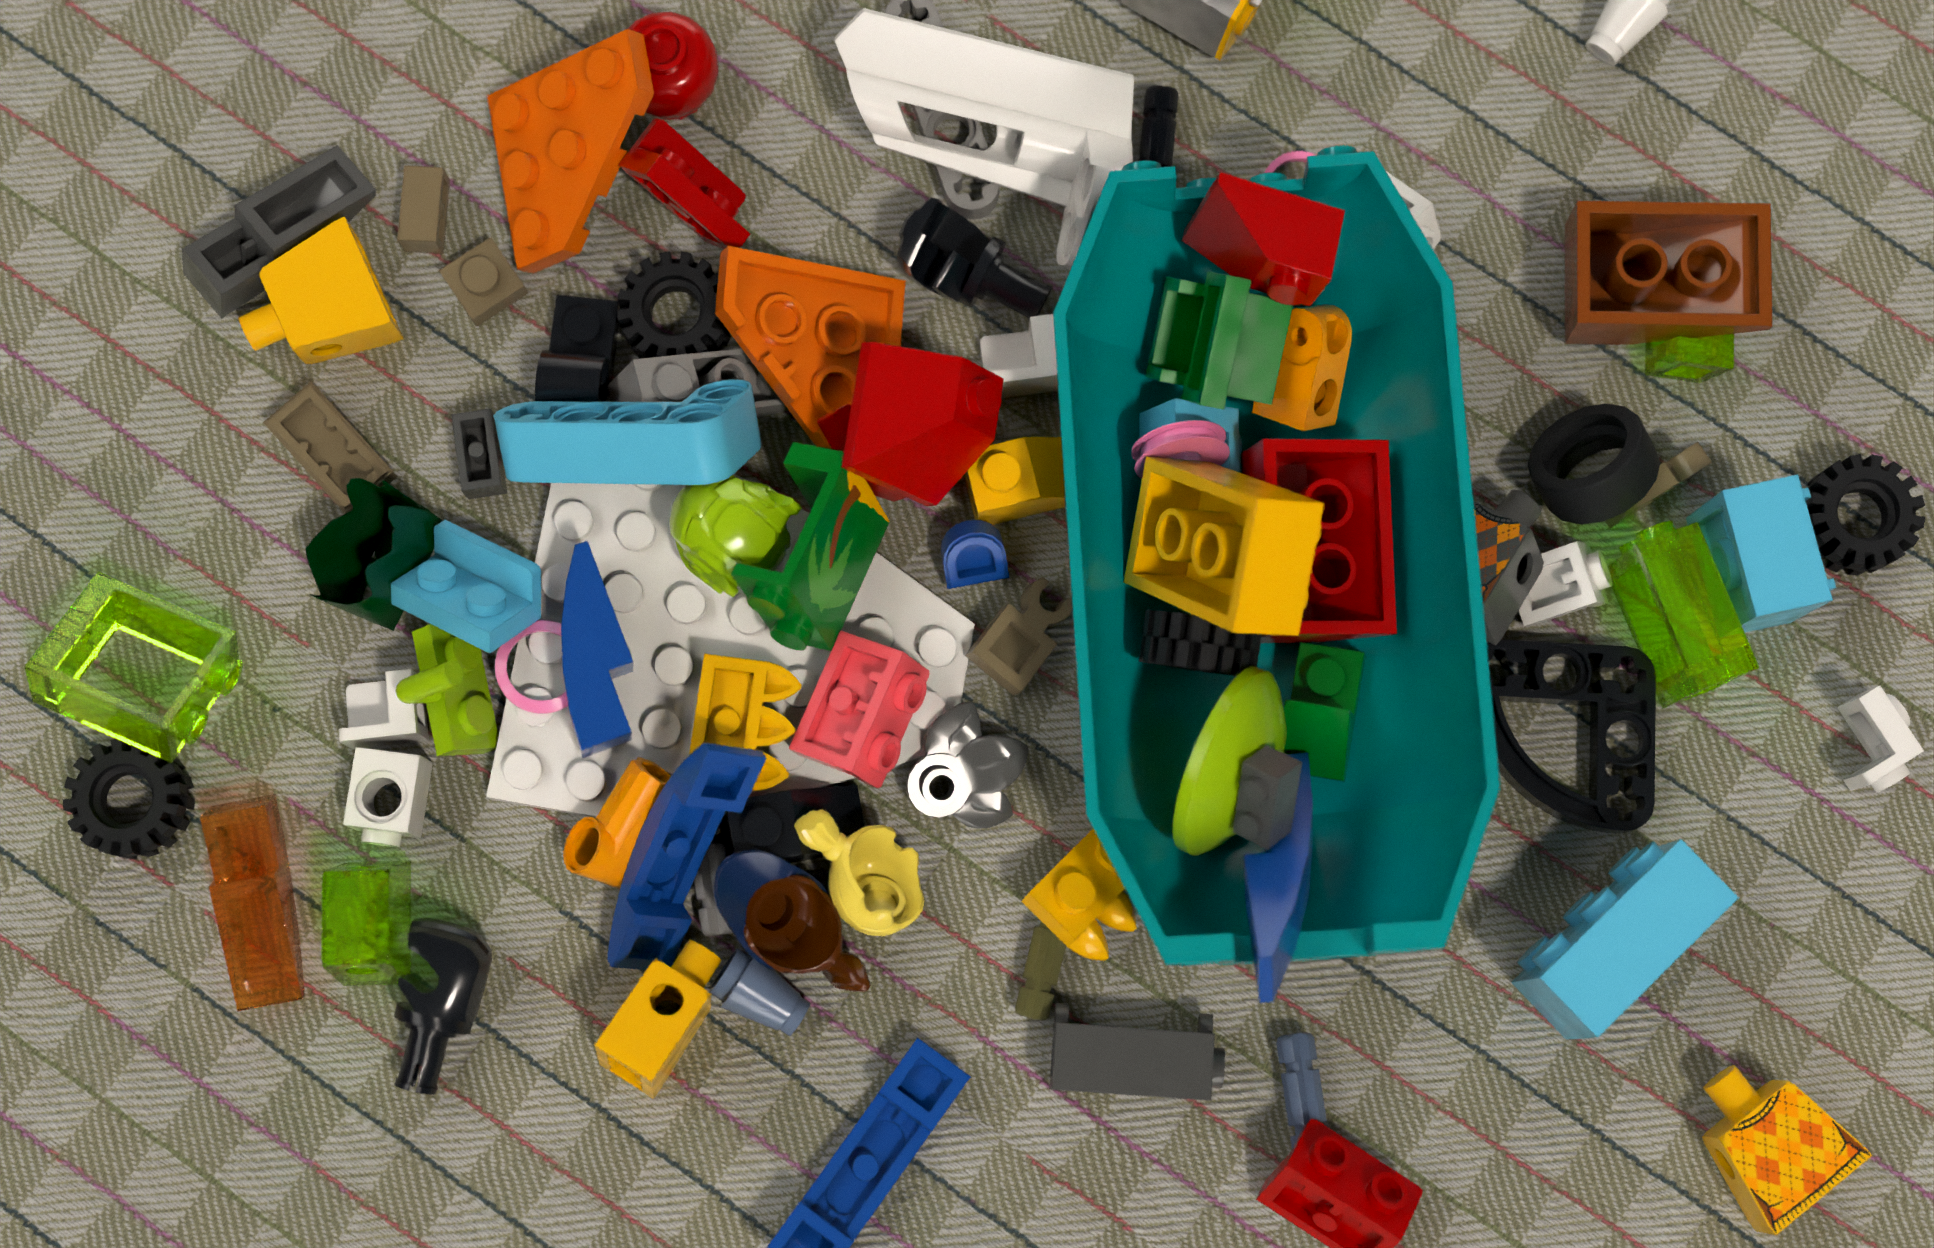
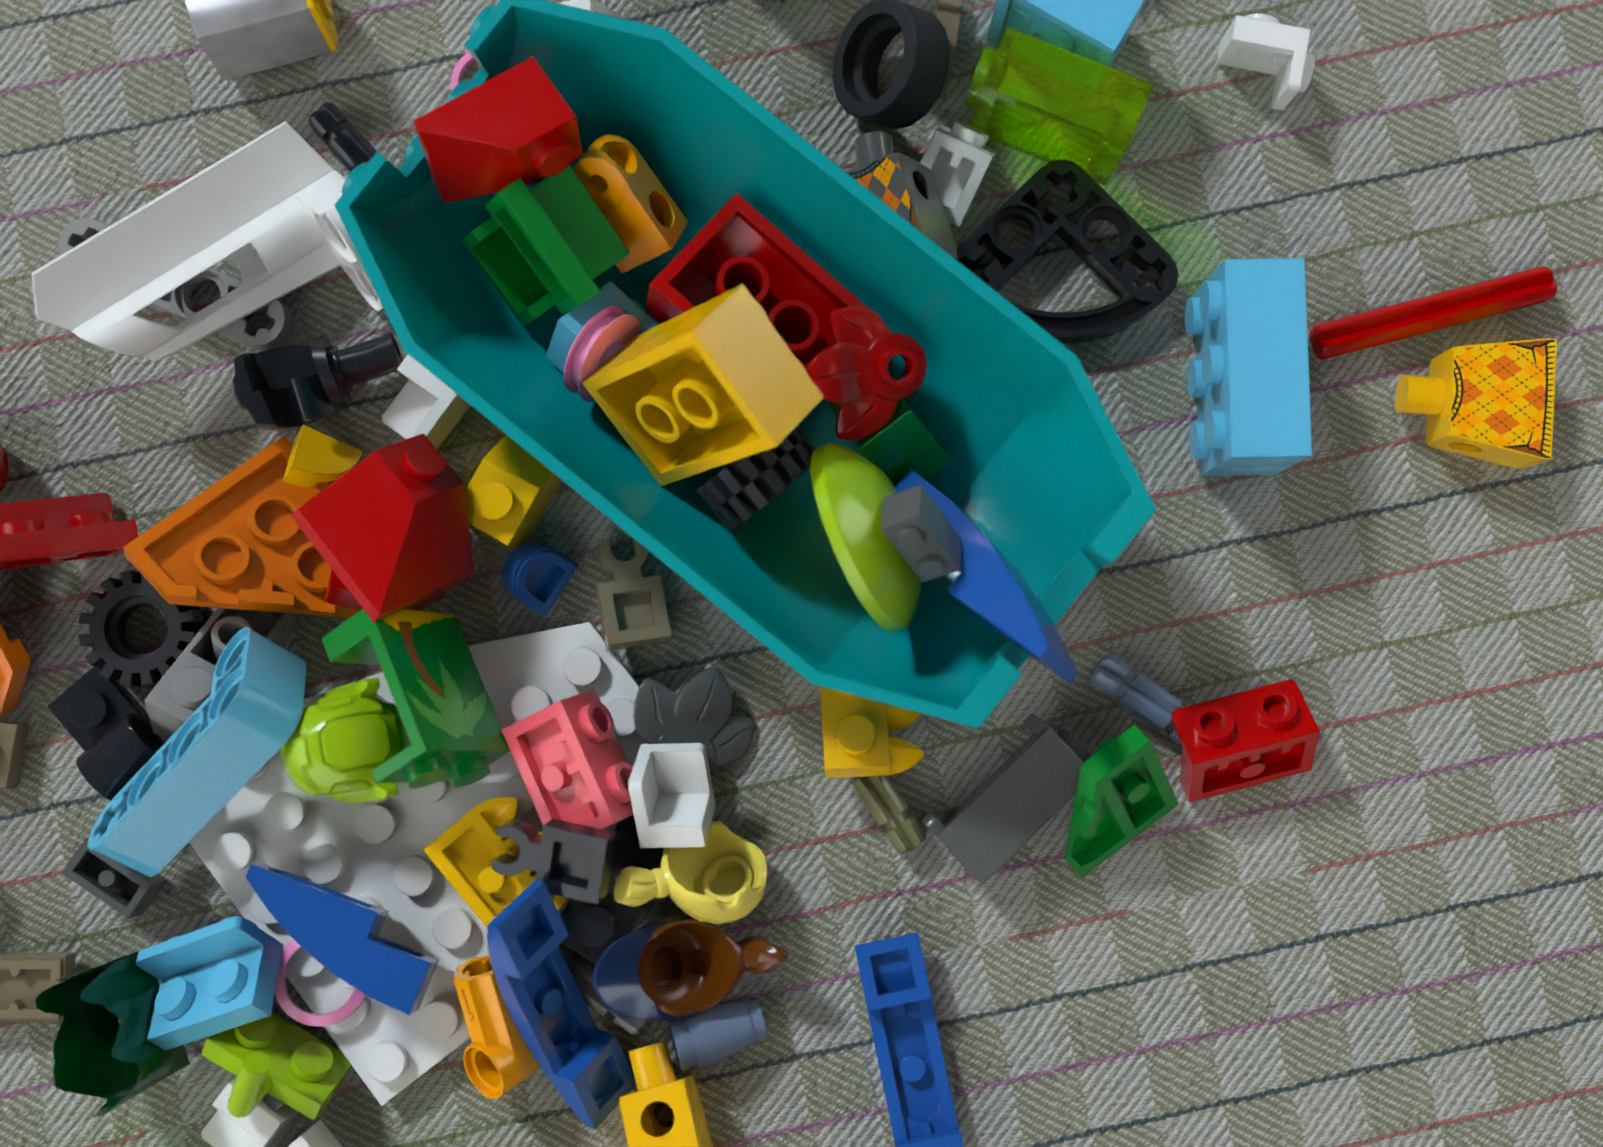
camera: 45 degrees left, 5 degrees up
(797, 759) = (567, 857): none -> black plate
(907, 797) = (672, 795): none -> white panel
(912, 320) = (318, 458): none -> yellow tile
(1207, 1135) = (1116, 799): none -> green wing
(1339, 647) = (857, 371): none -> red plate
(1806, 1047) = (1432, 312): none -> red axle

